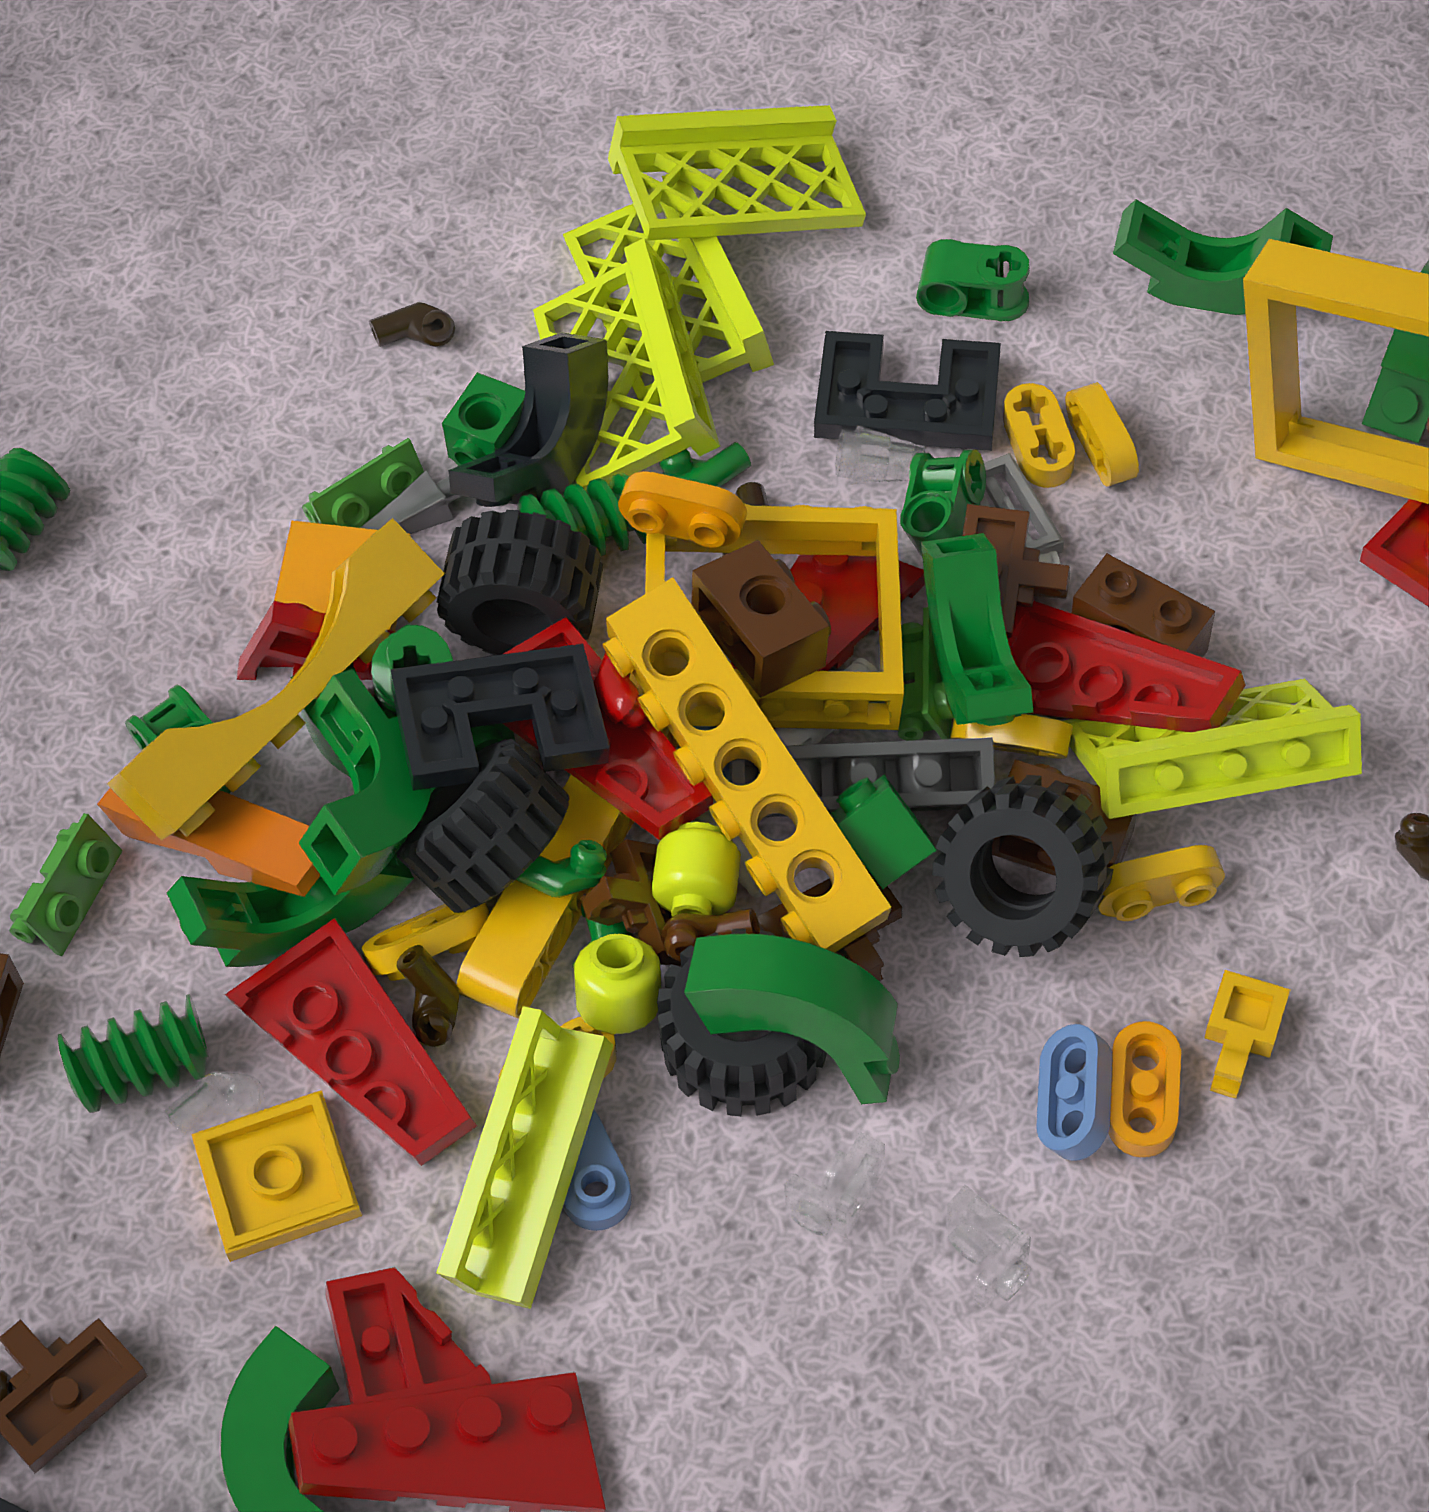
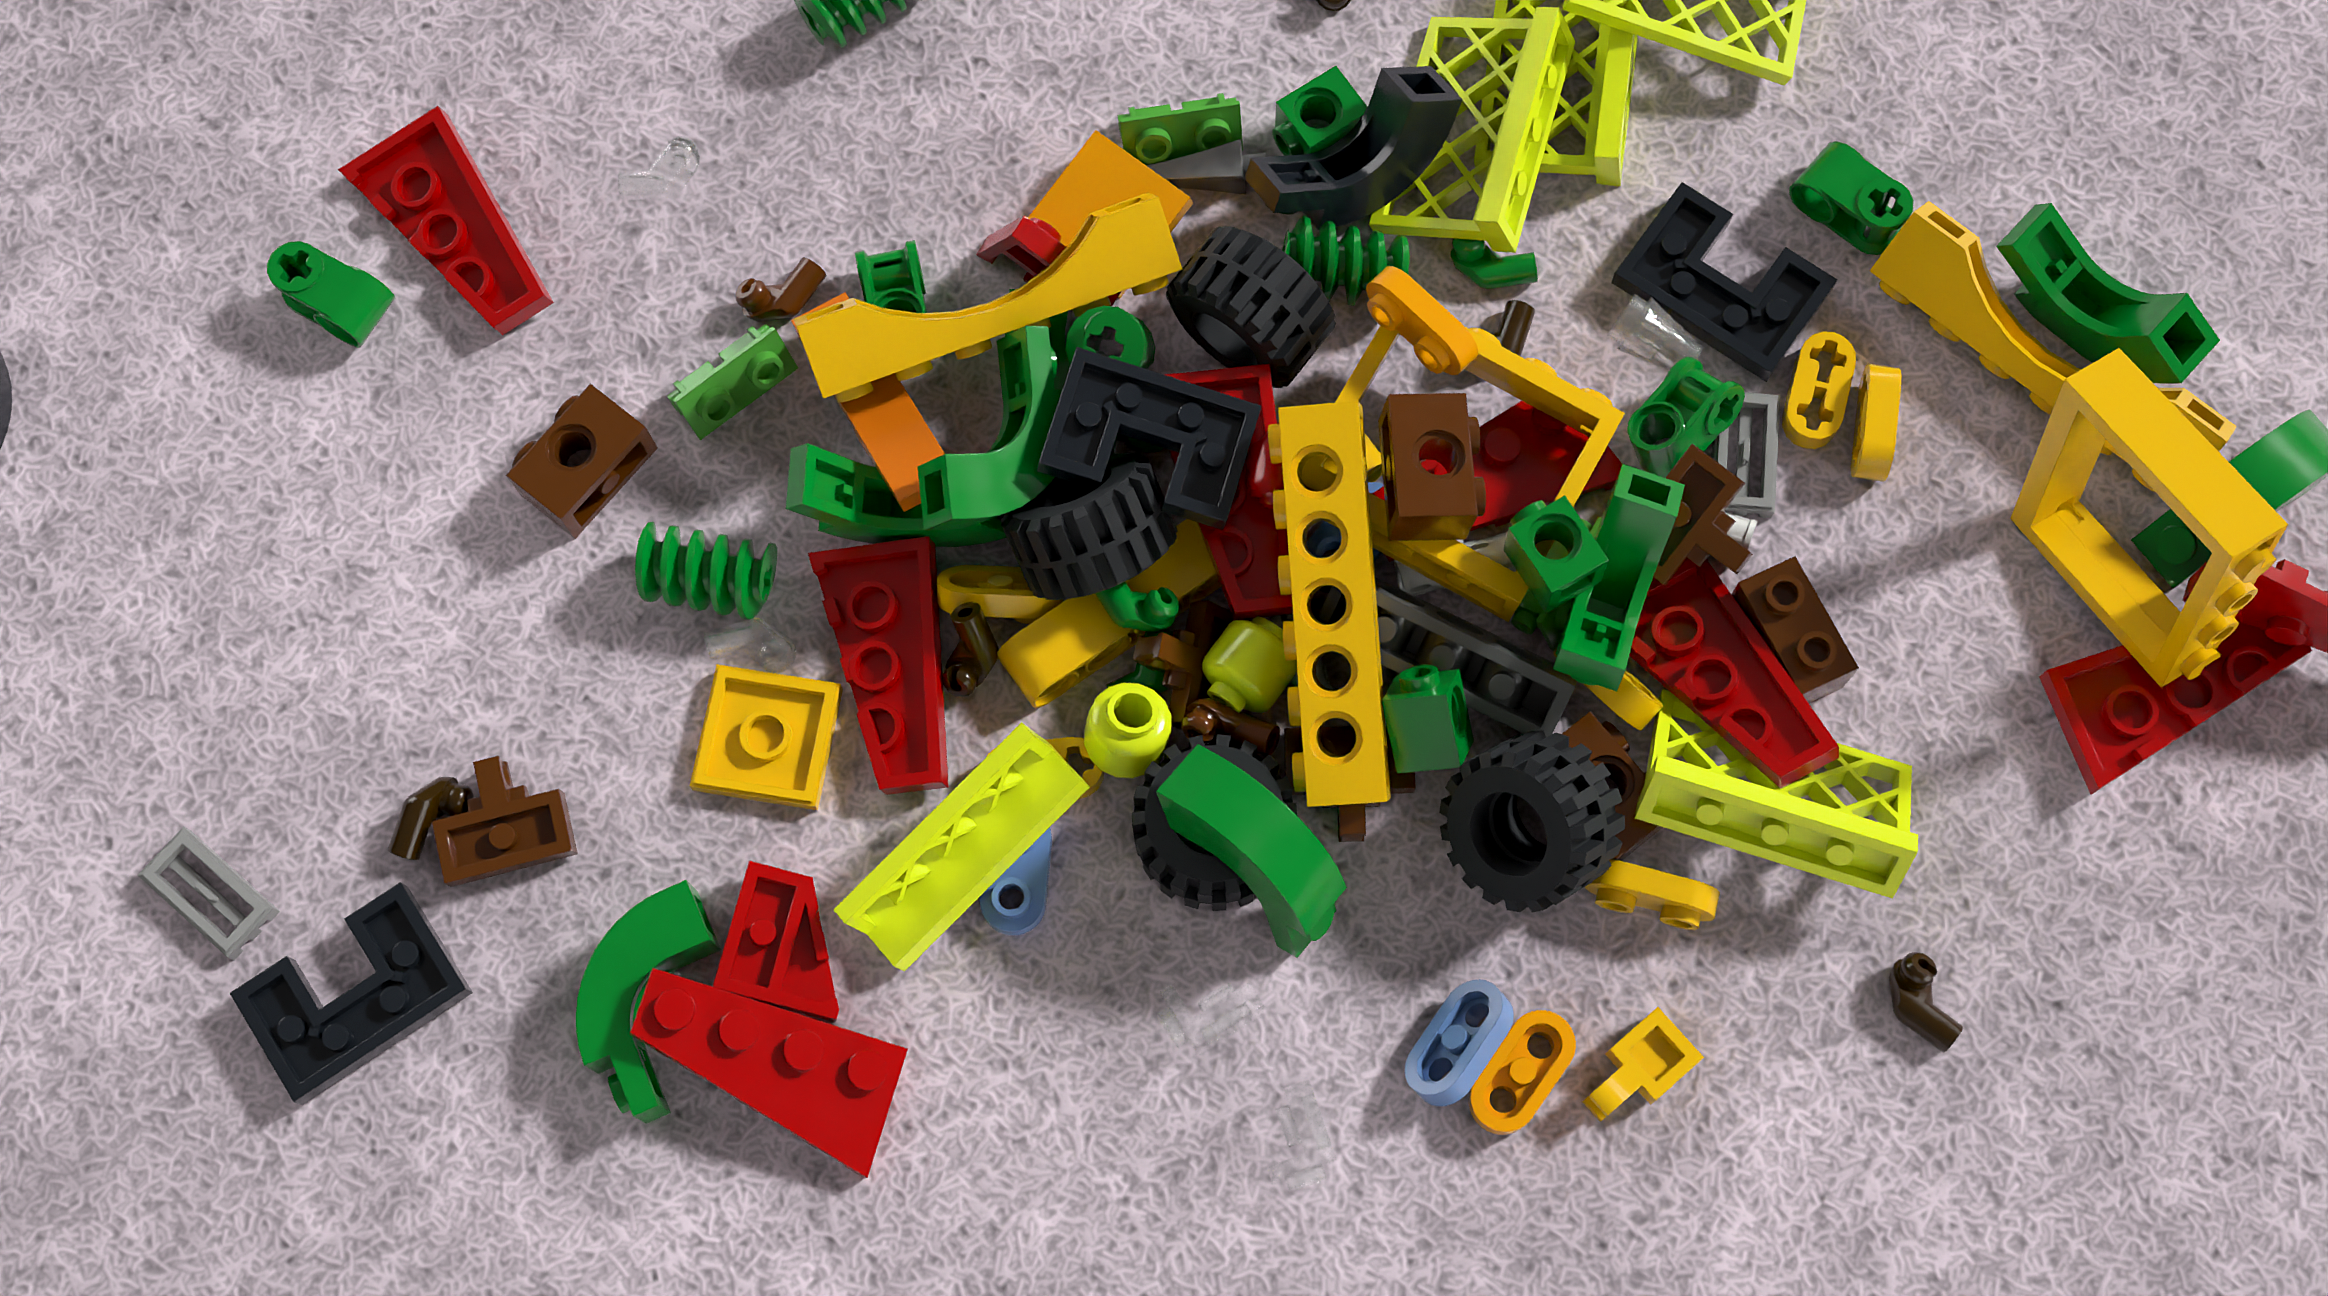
camera: 30 degrees right, 15 degrees up
(80, 796) = (780, 300): none -> reddish brown arm
(914, 654) = (1554, 579): none -> green brick
(1081, 296) = (1946, 276): none -> yellow arch

